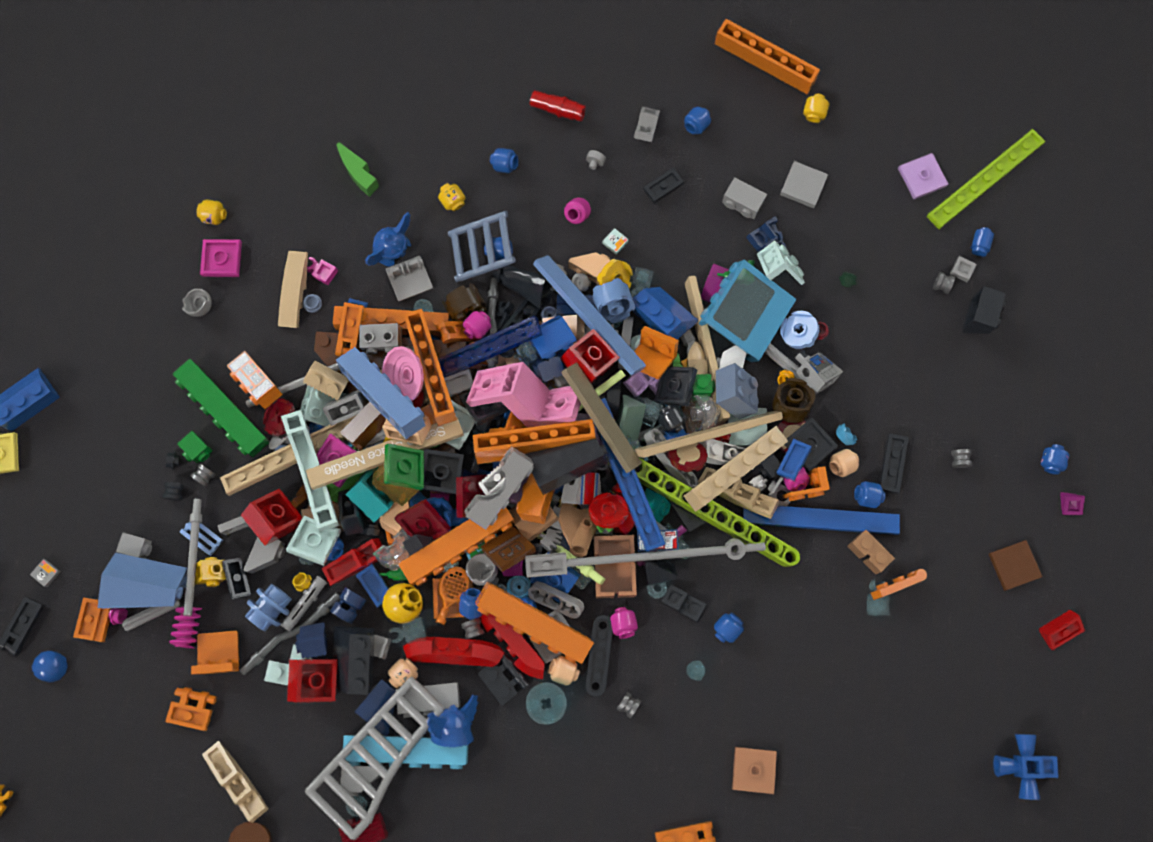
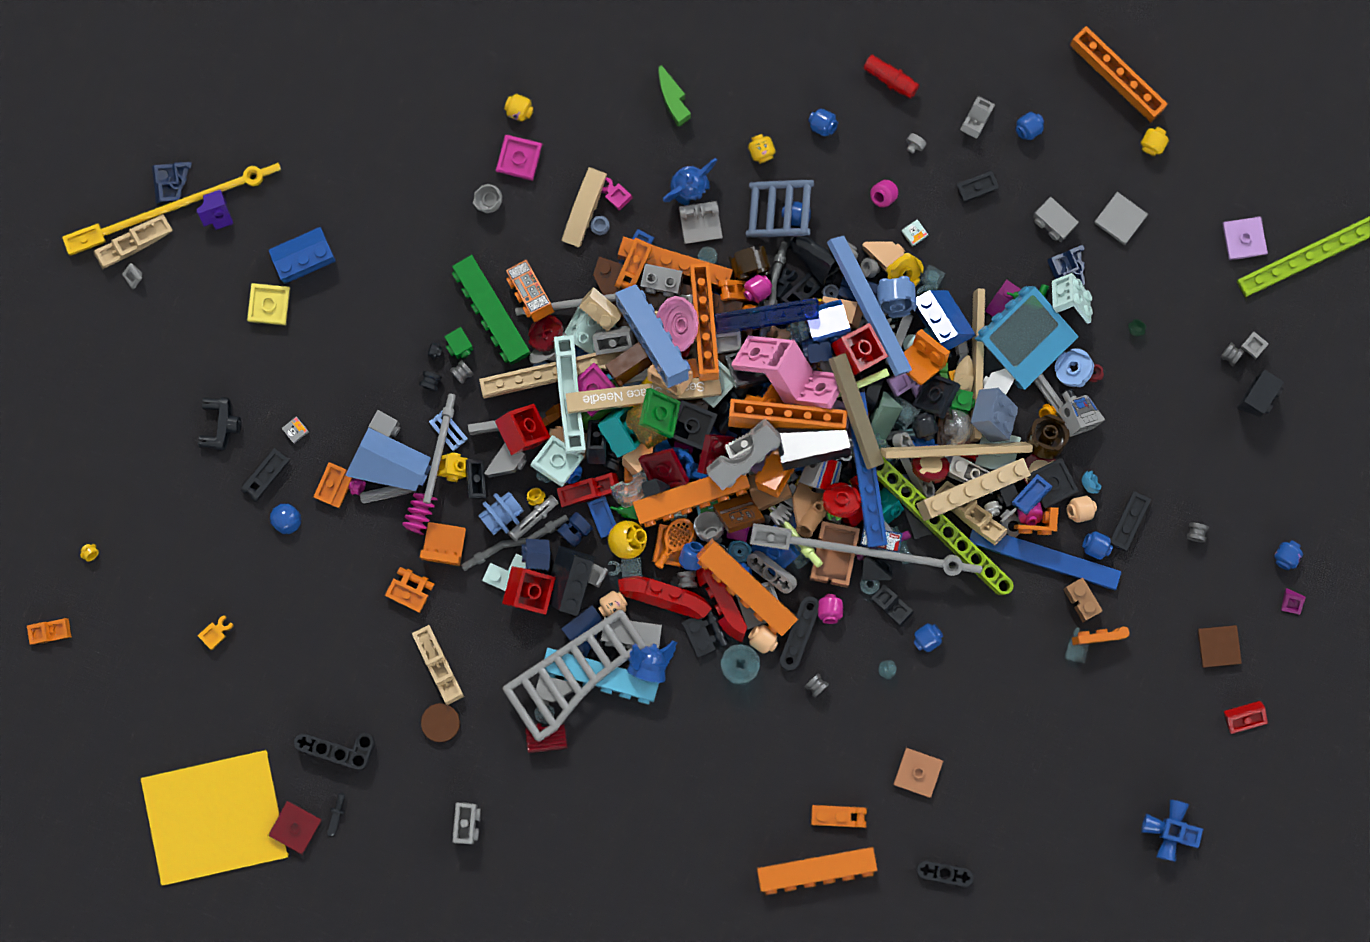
camera: 15 degrees right, 5 degrees up
(982, 241) = (1283, 321): blue brick -> none

